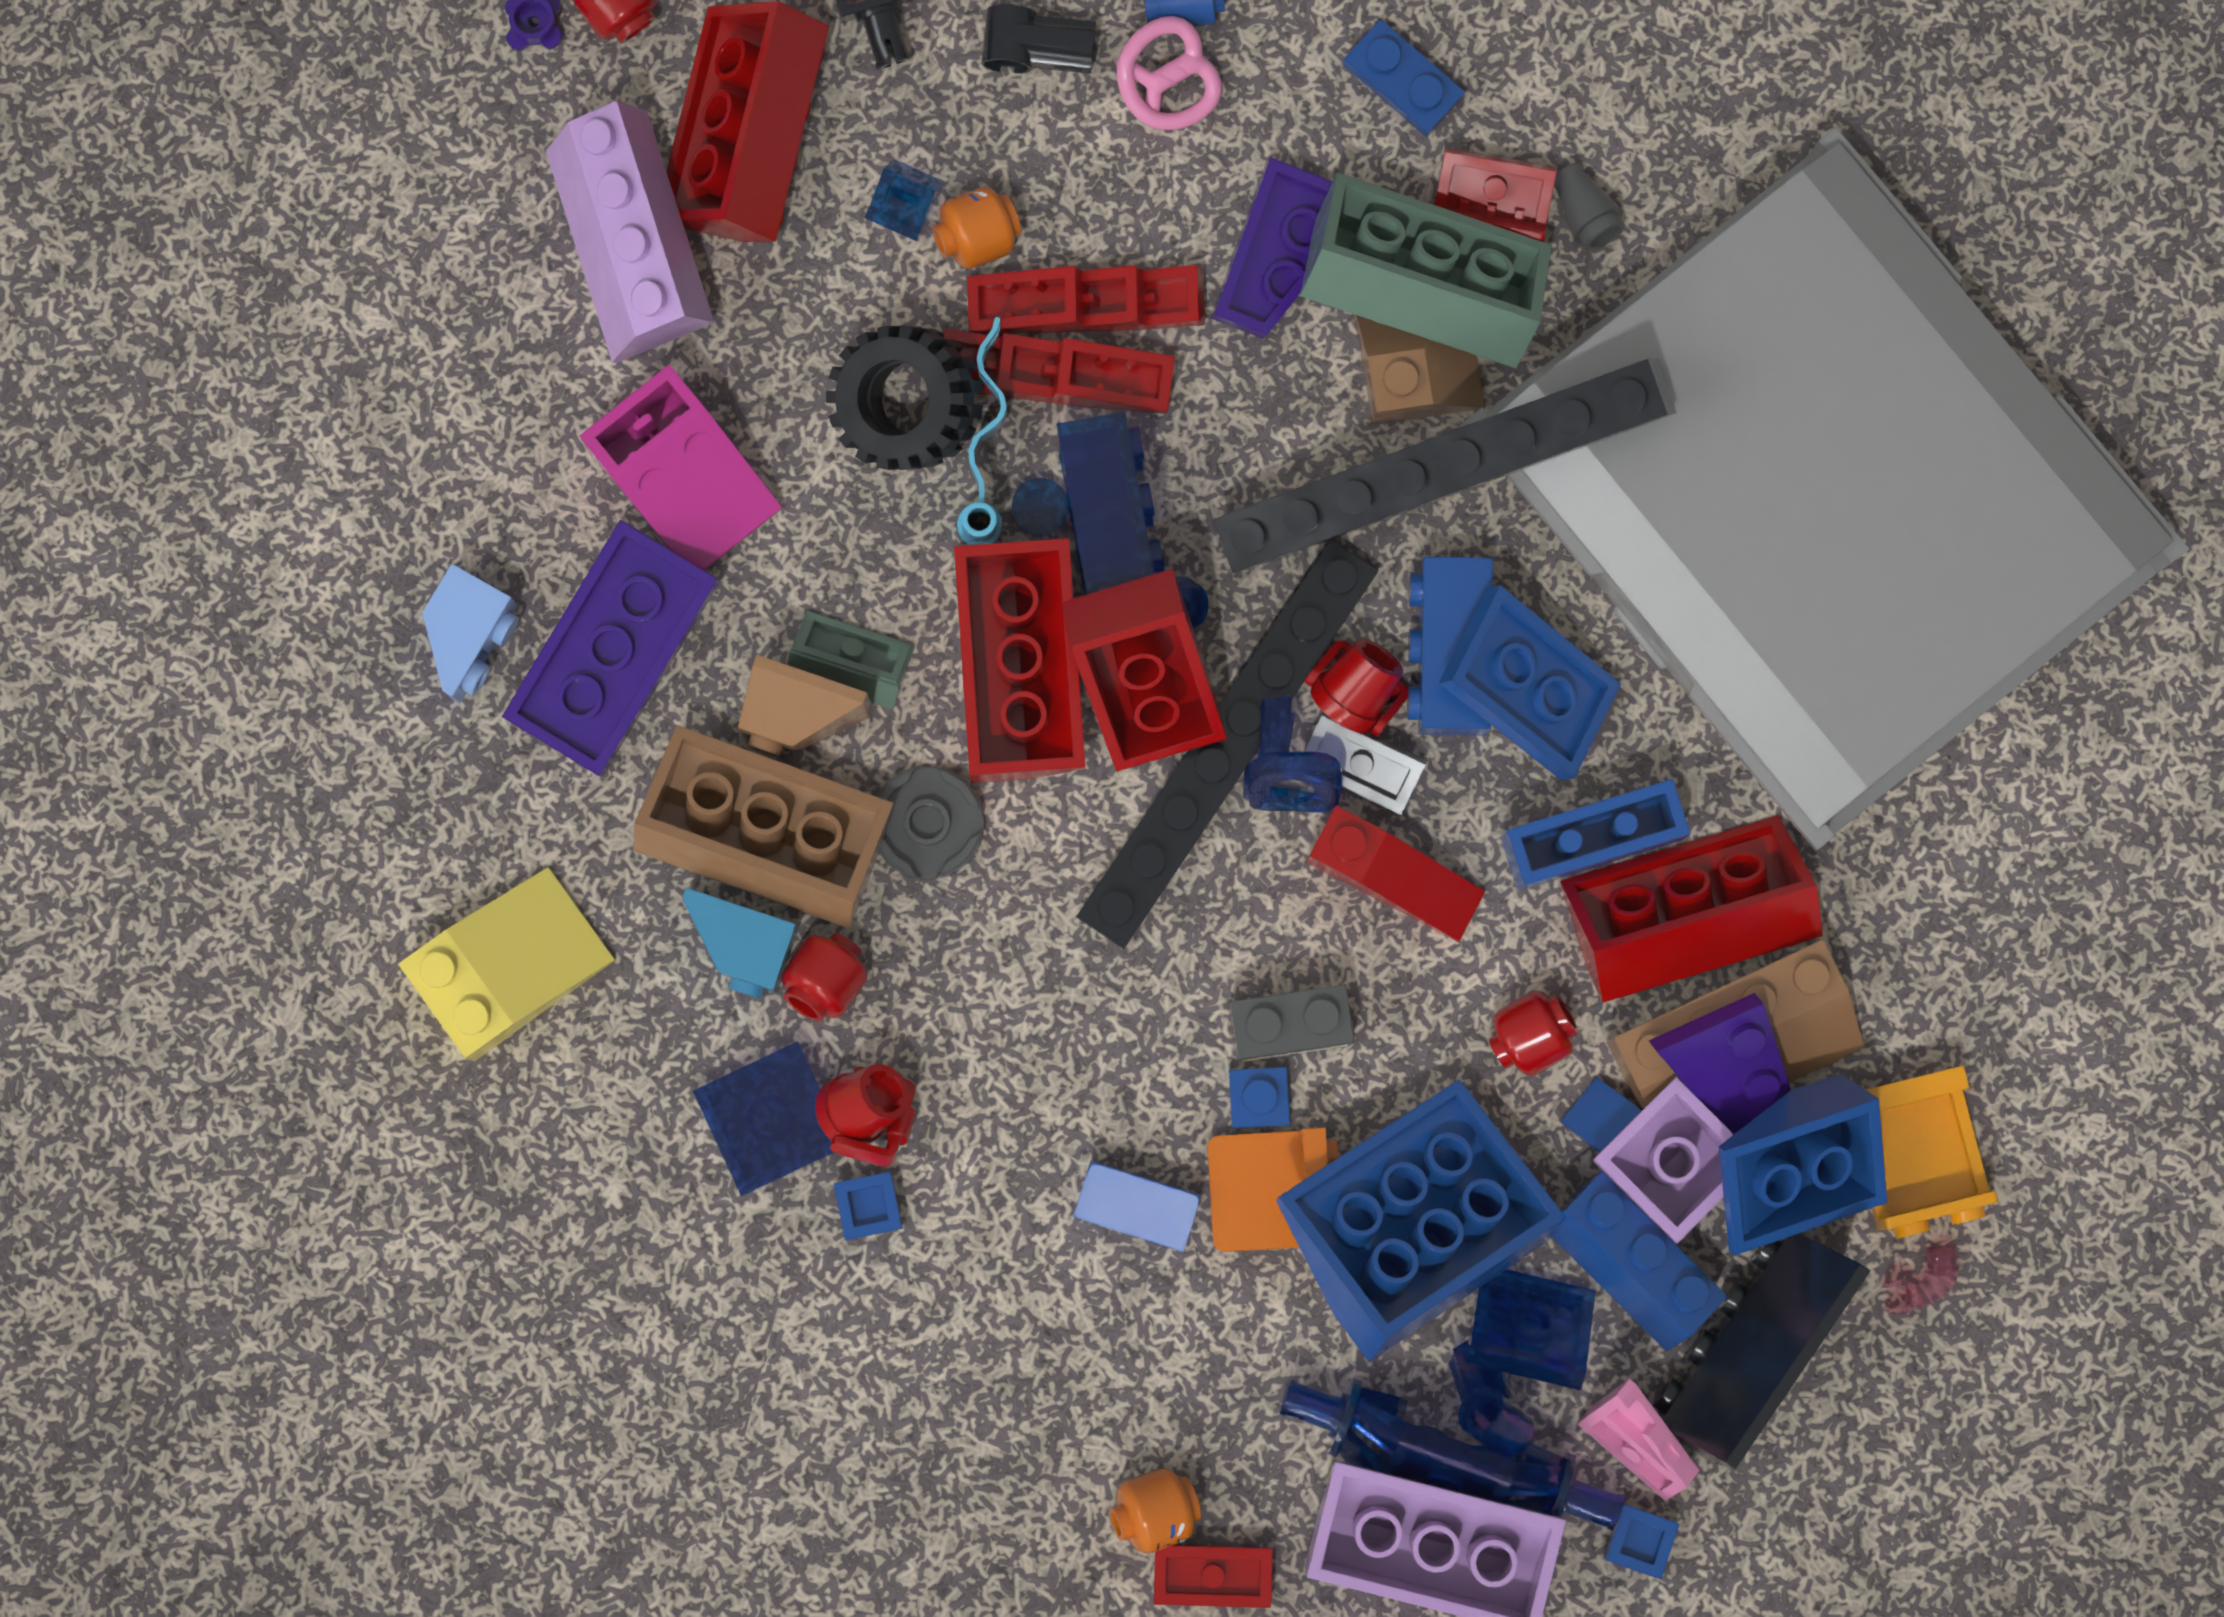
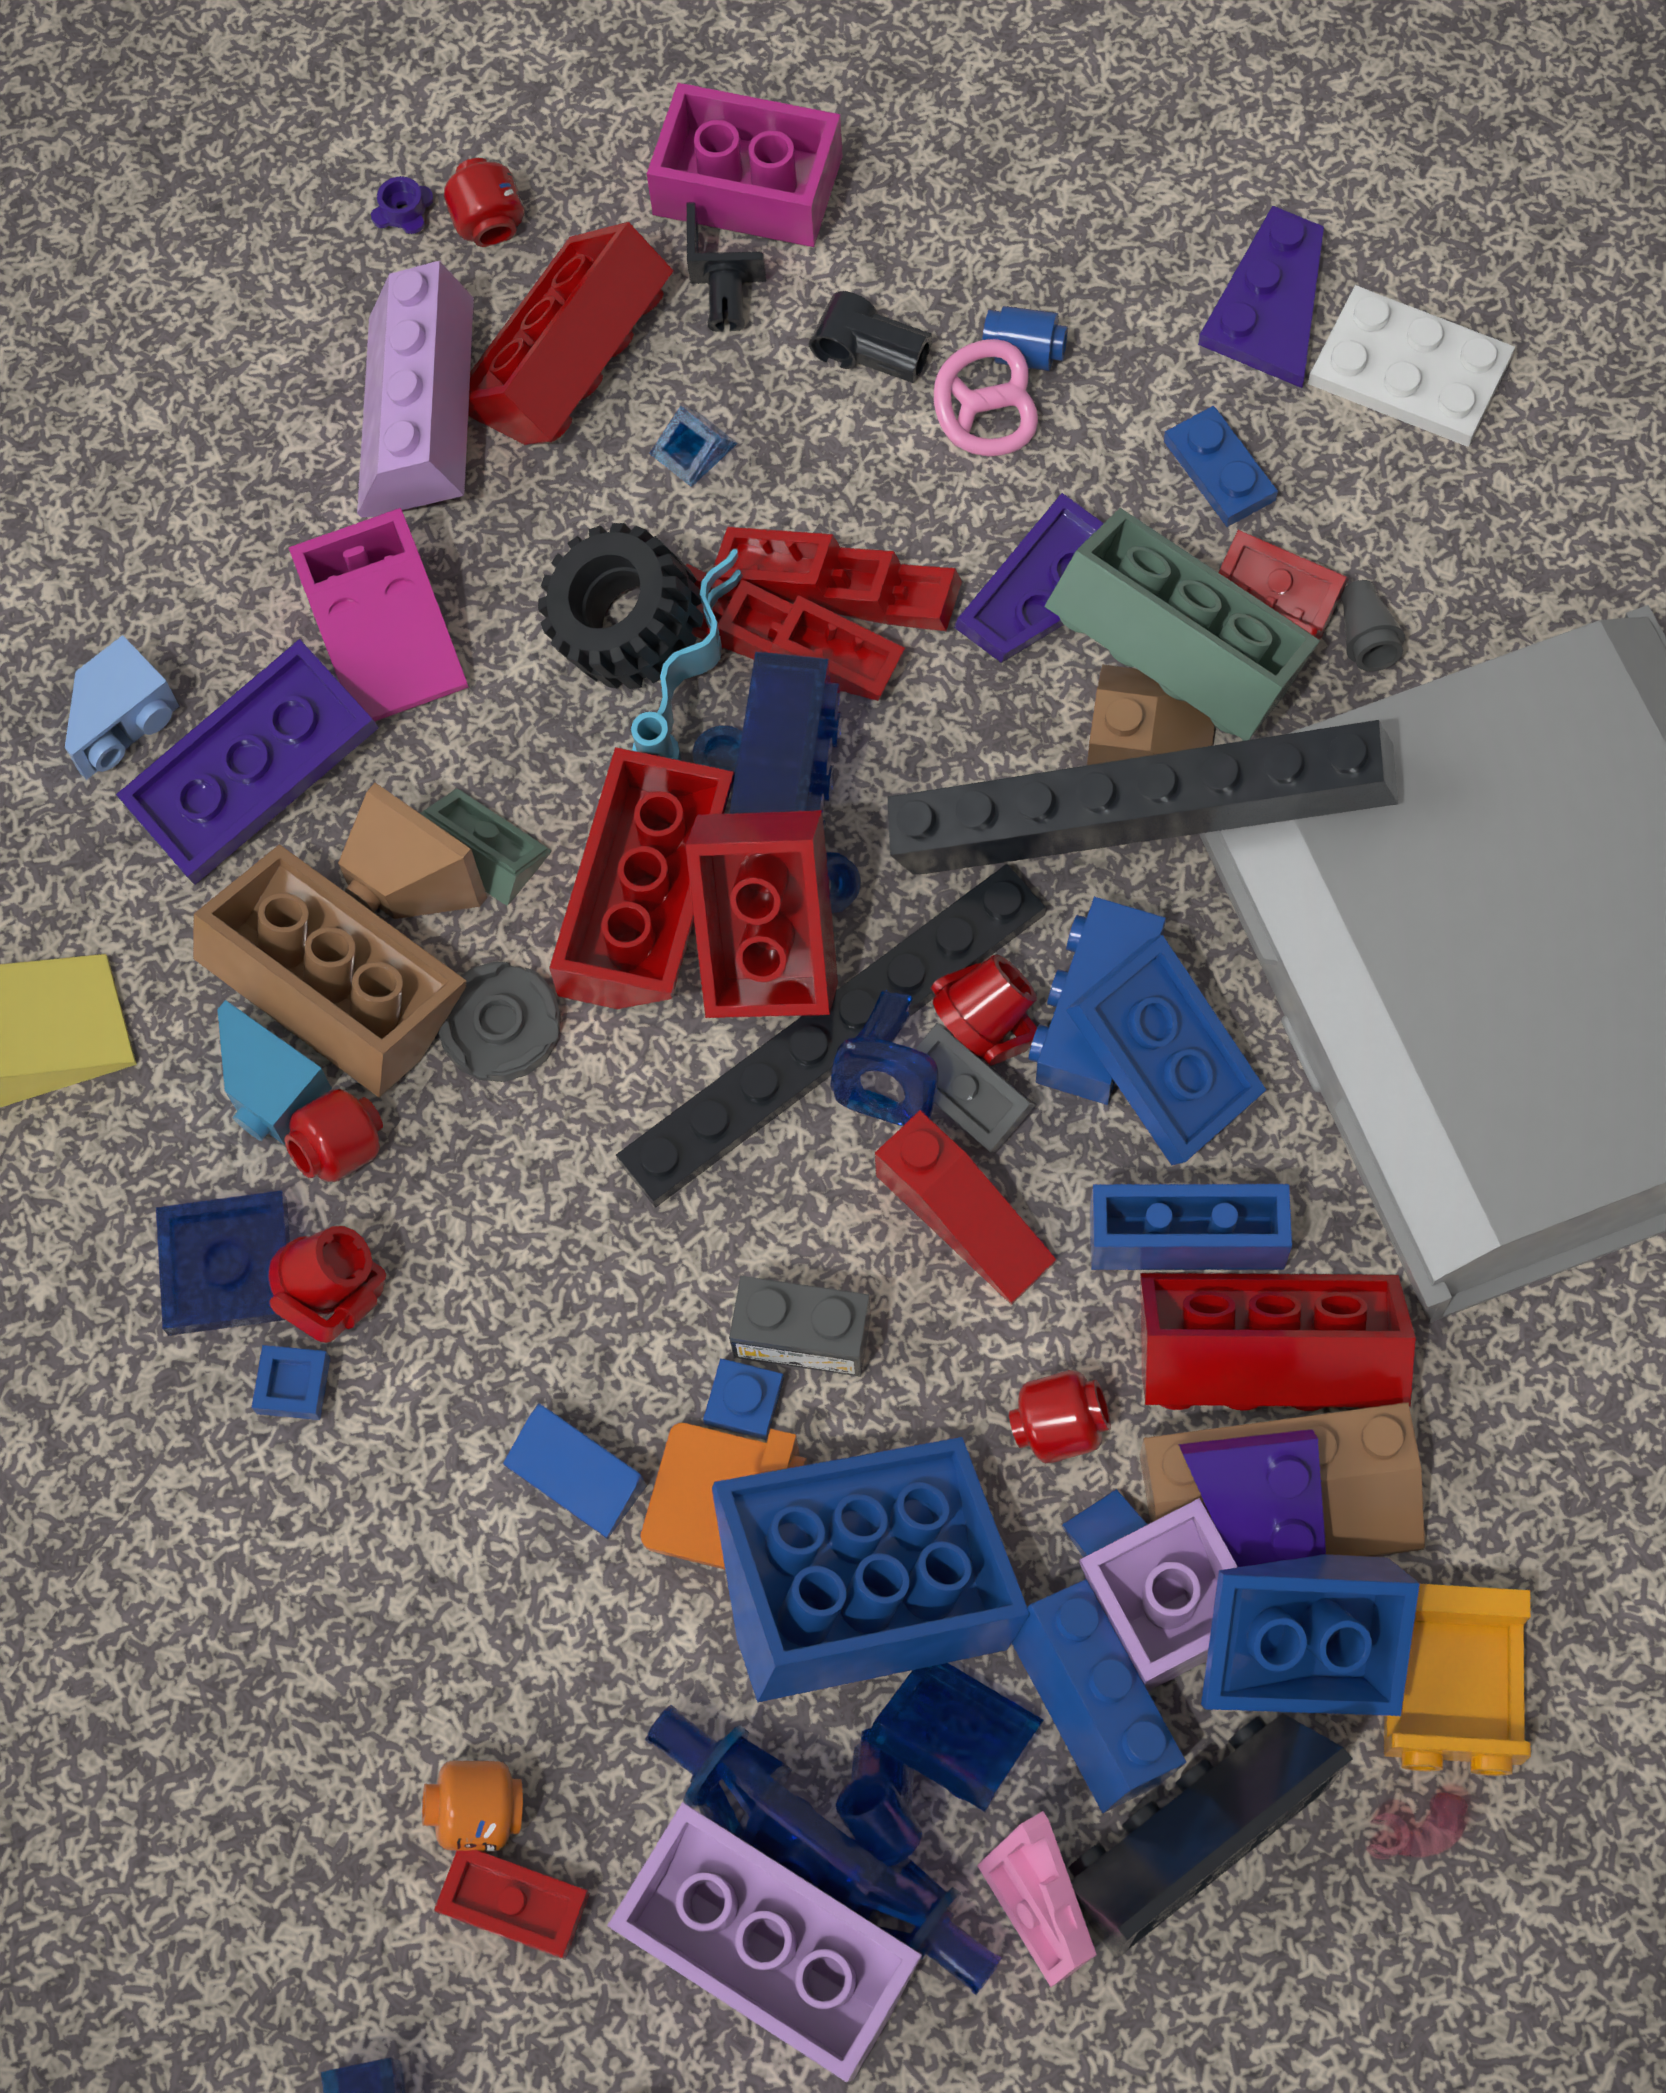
camera: 25 degrees right, 15 degrees down
(977, 227) = (751, 483): orange head -> none
(1641, 1541) = (1007, 2021): blue plate -> none

